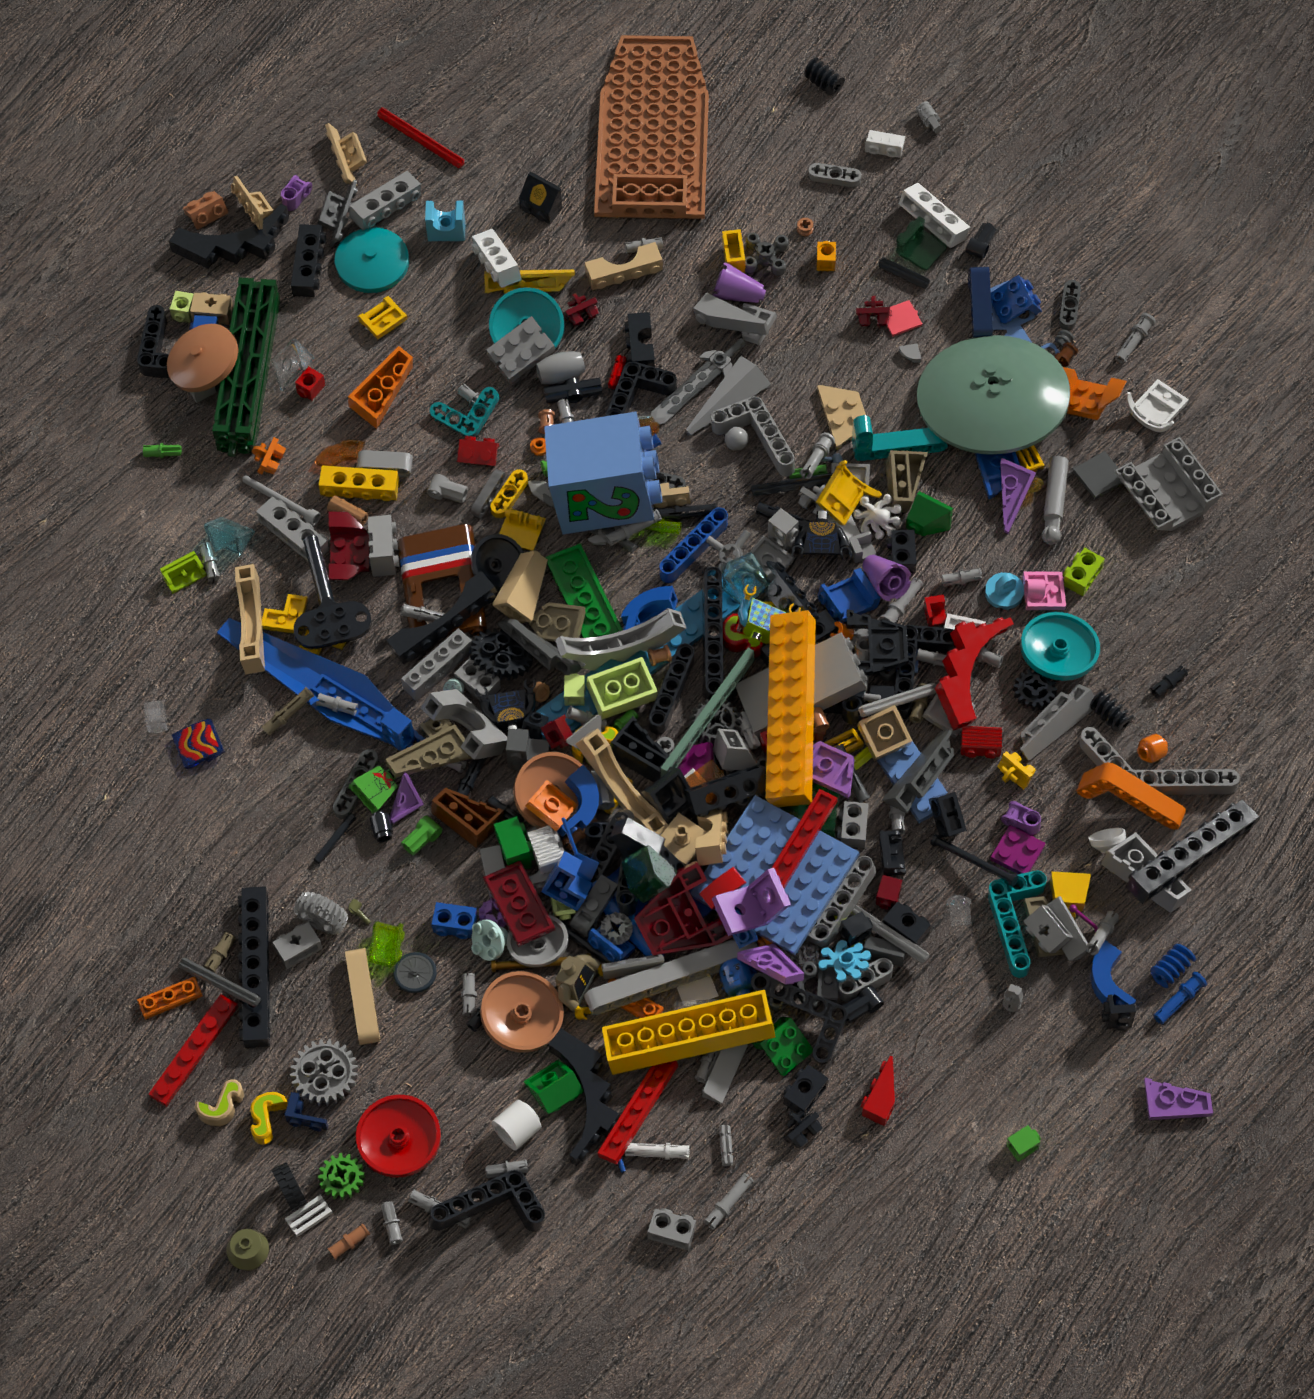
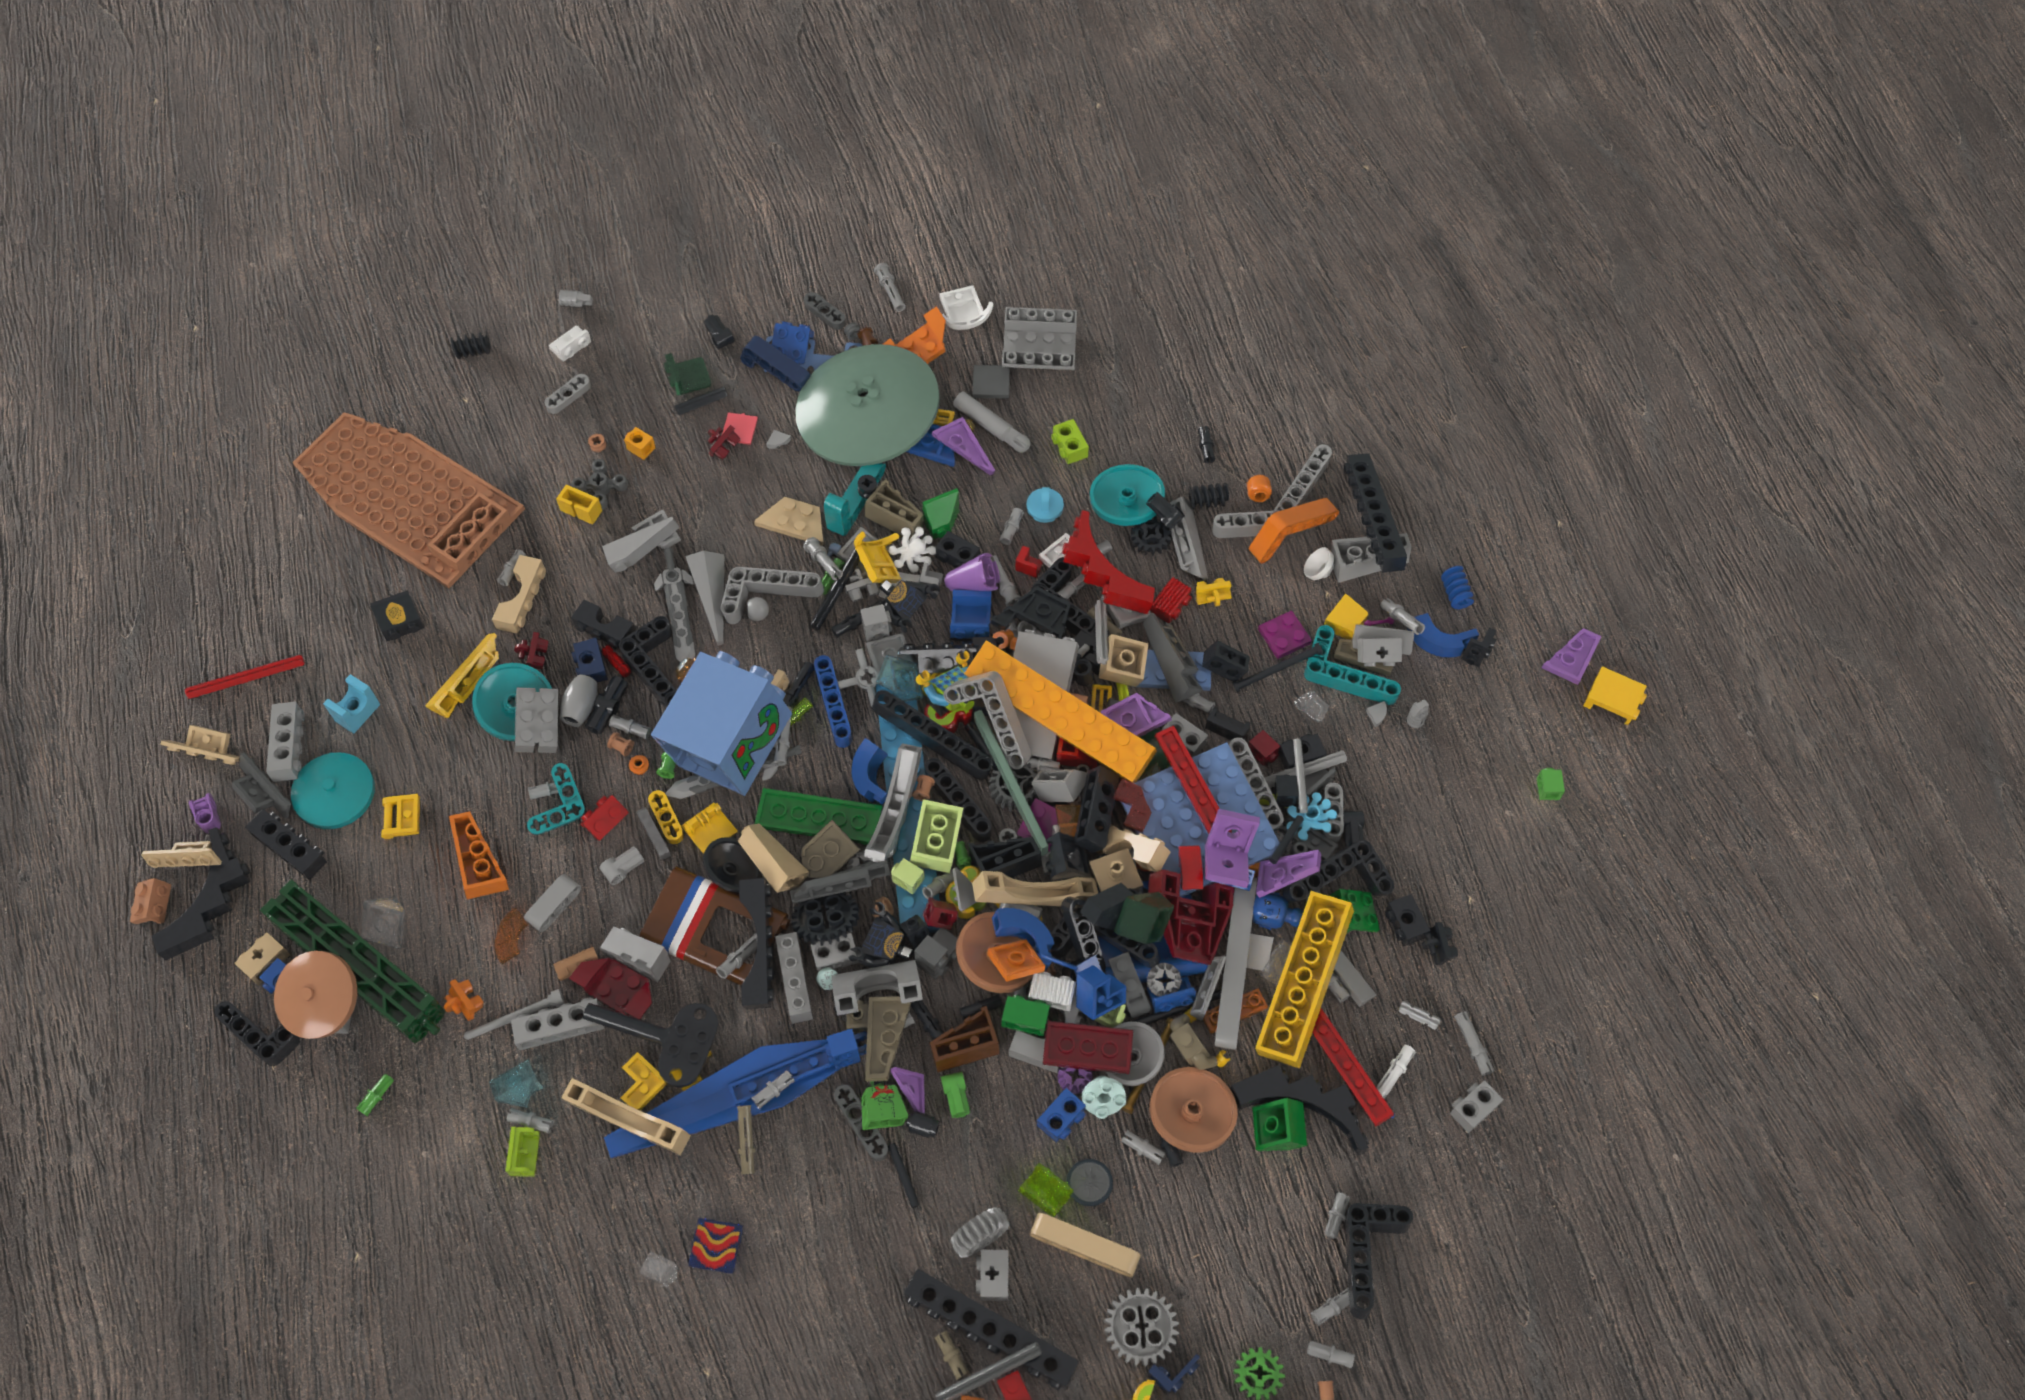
camera: 60 degrees left, 0 degrees up
(184, 301) = (232, 978): yellowish green brick -> none
(312, 377) = (416, 910): red brick -> none
(352, 476) = (557, 924): yellow brick -> none
(354, 907) = (987, 1199): olive hand -> none
(398, 1136) = (1251, 1295): red dish -> none
(496, 258) = (427, 684): white brick -> none
(516, 1124) = (1303, 1179): white piece -> none
(604, 344) = (589, 651): none -> dark blue brick
(738, 286) = (610, 523): medium lavender cone -> none
(746, 821) = (1133, 796): none -> clear red tile
(754, 664) = (996, 713): none -> light grey beam
(803, 950) = (1286, 839): none -> black bar
(875, 930) = (1300, 776): none -> light grey bar
(881, 1100) = (1448, 864): red slope -> none
(908, 446) = (863, 489): none -> black wheel
(937, 216) = (681, 345): white brick -> none
(993, 967) = (1377, 713): none -> light grey tile
(1019, 816) = (1257, 614): medium lavender piece -> none
(1044, 591) = (1067, 477): bright pink plate -> none
(1060, 688) = (1168, 513): none -> black piece
(1158, 1155) = (1616, 694): none -> yellow panel
(1185, 992) = (1484, 592): blue pin -> none

